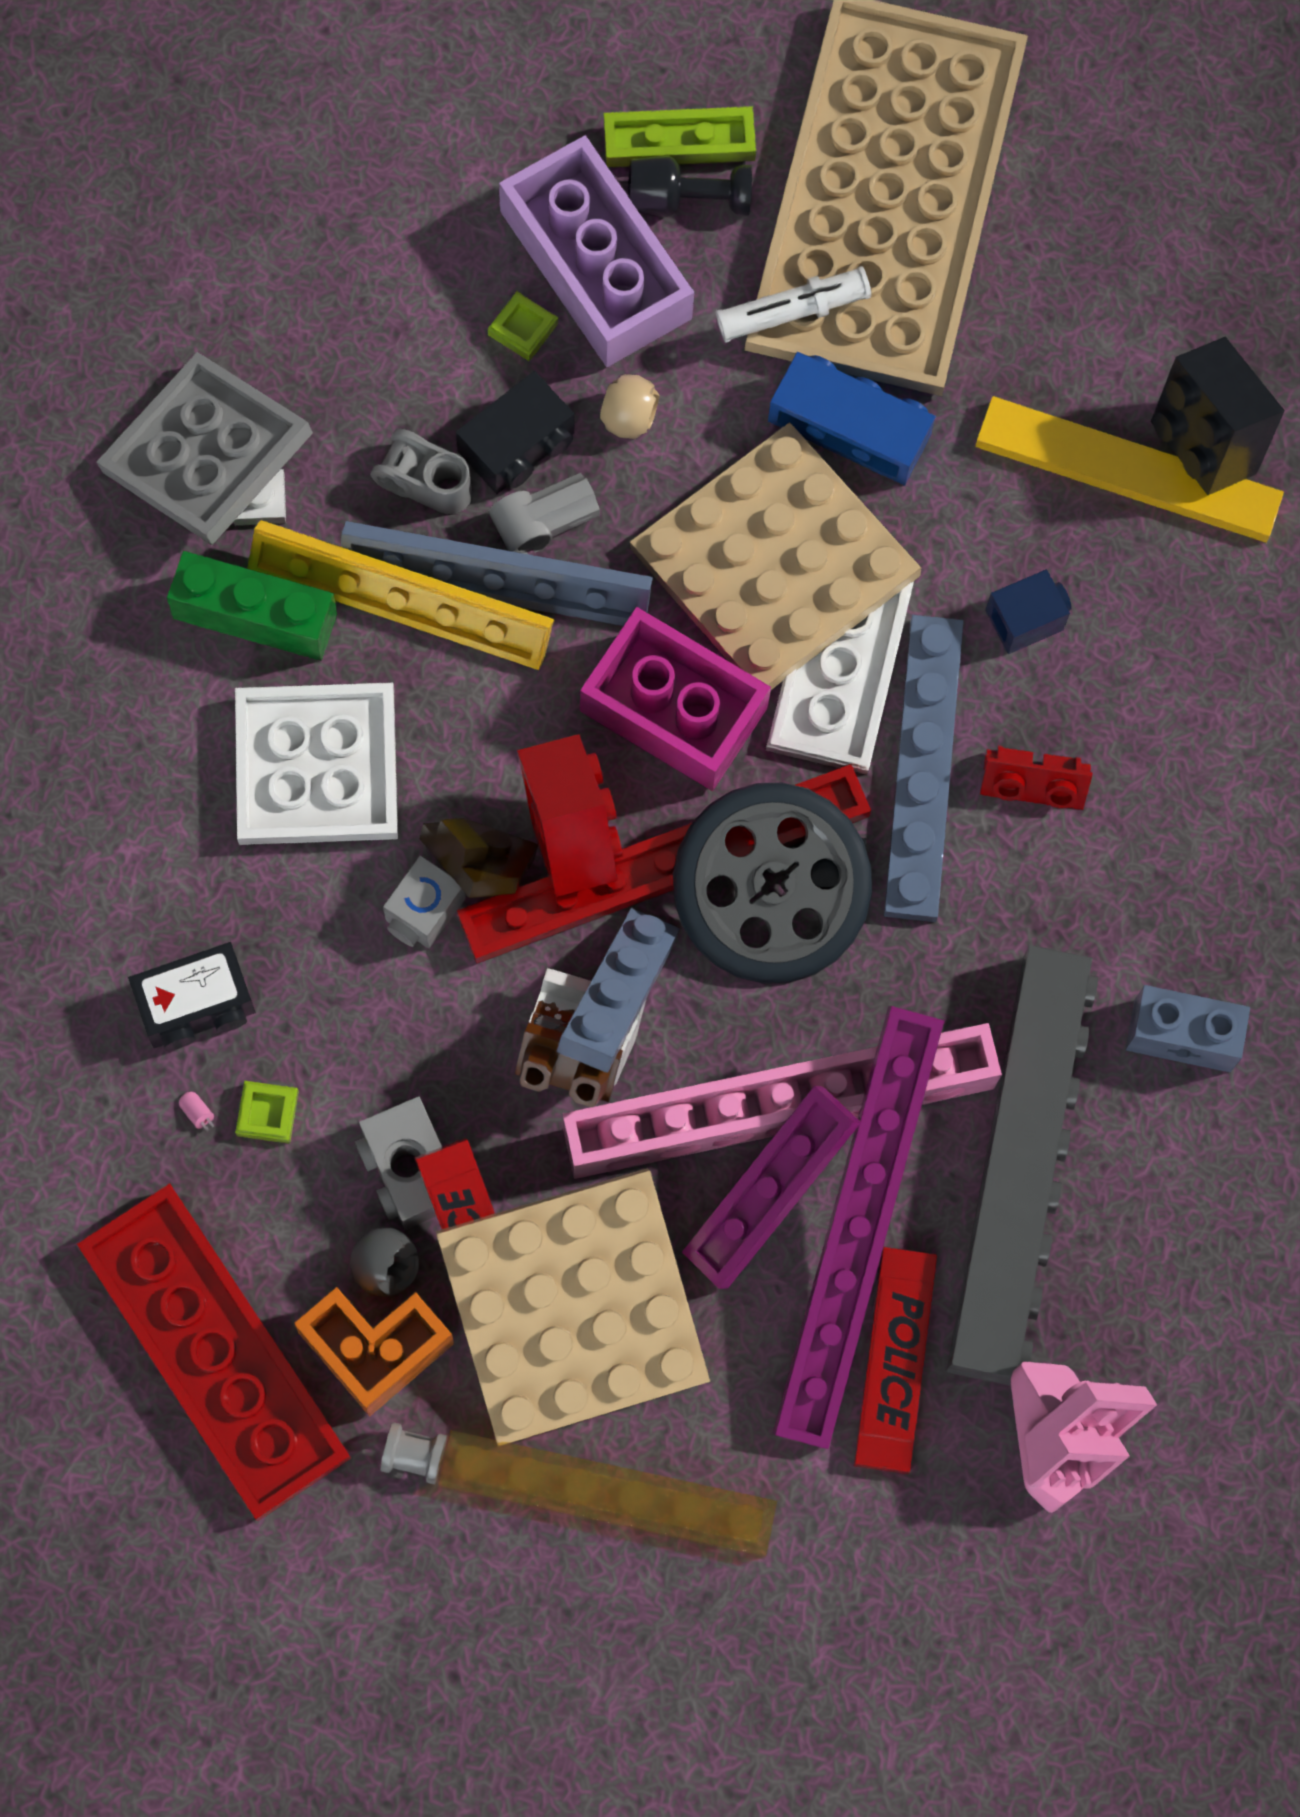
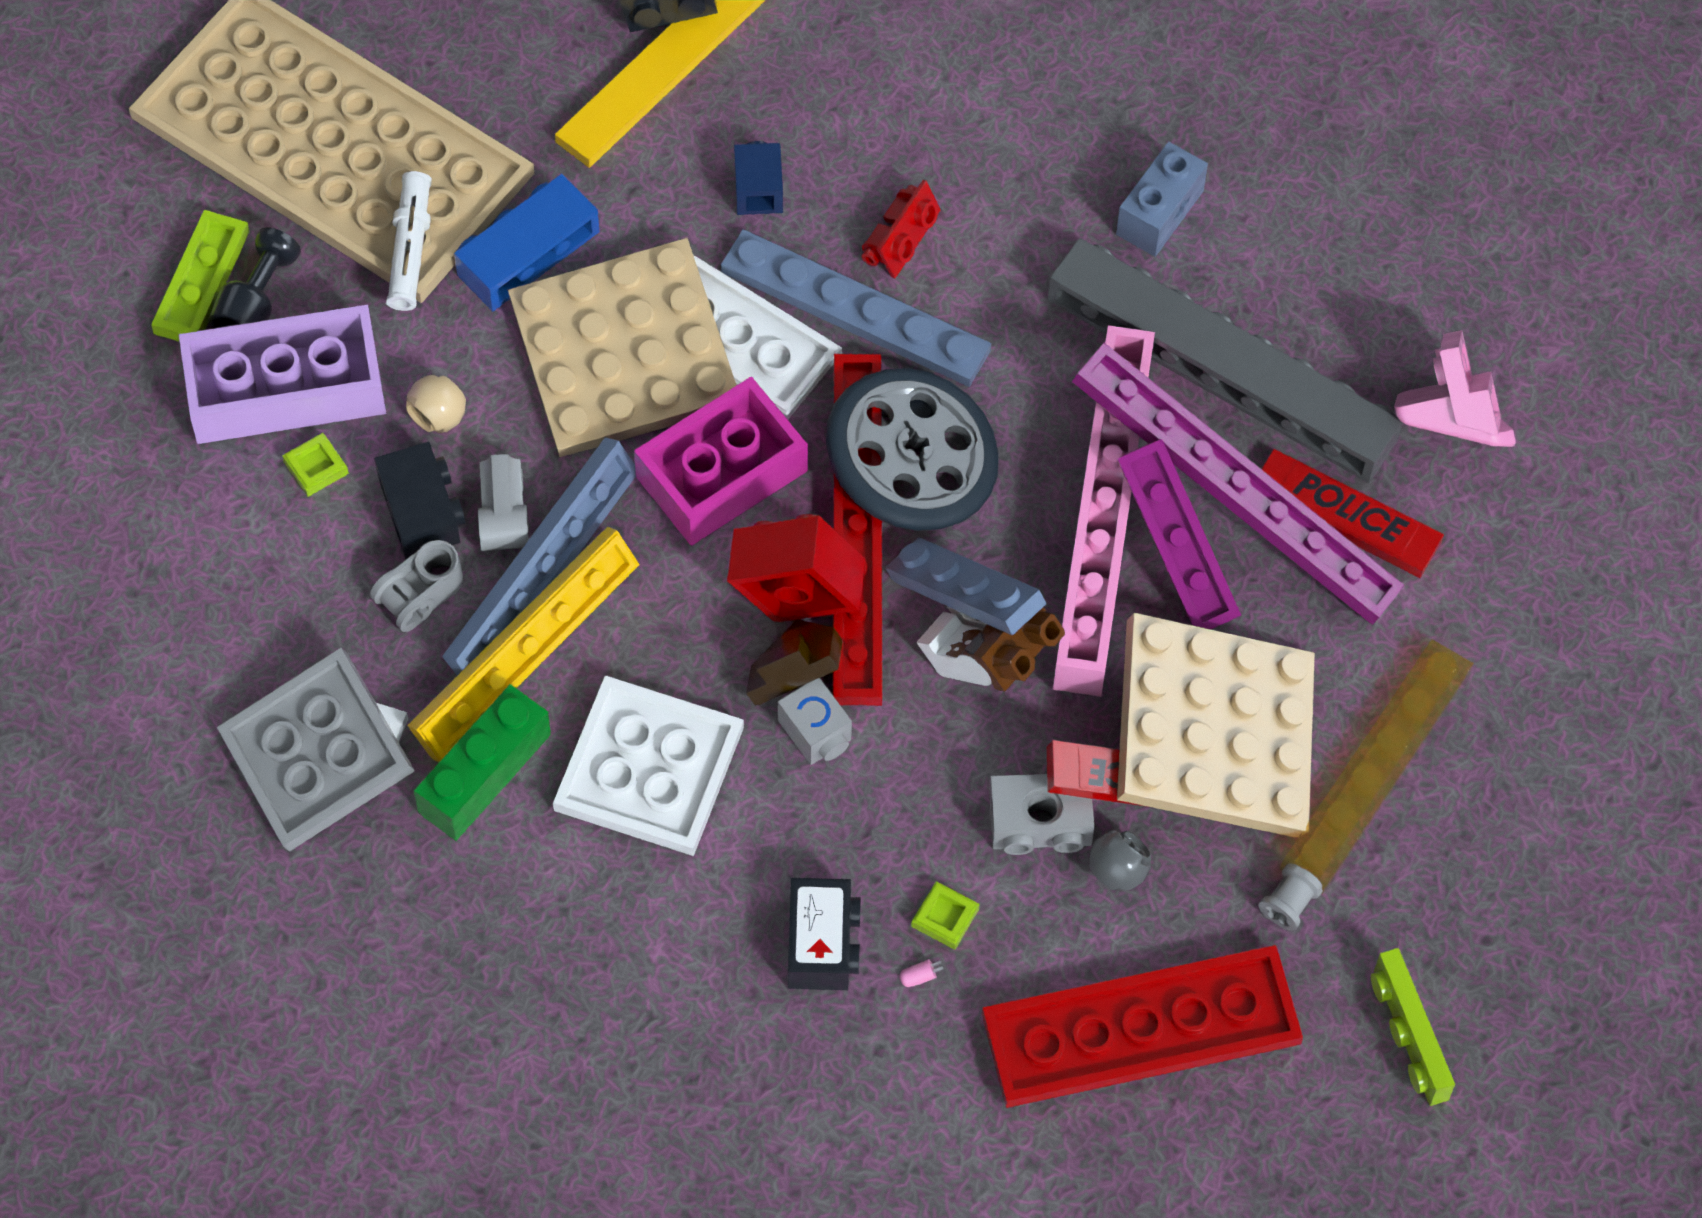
camera: 65 degrees left, 10 degrees down
(309, 1630) = (1412, 1028): none -> lime plate
(379, 1359) = (1200, 896): orange brick -> none

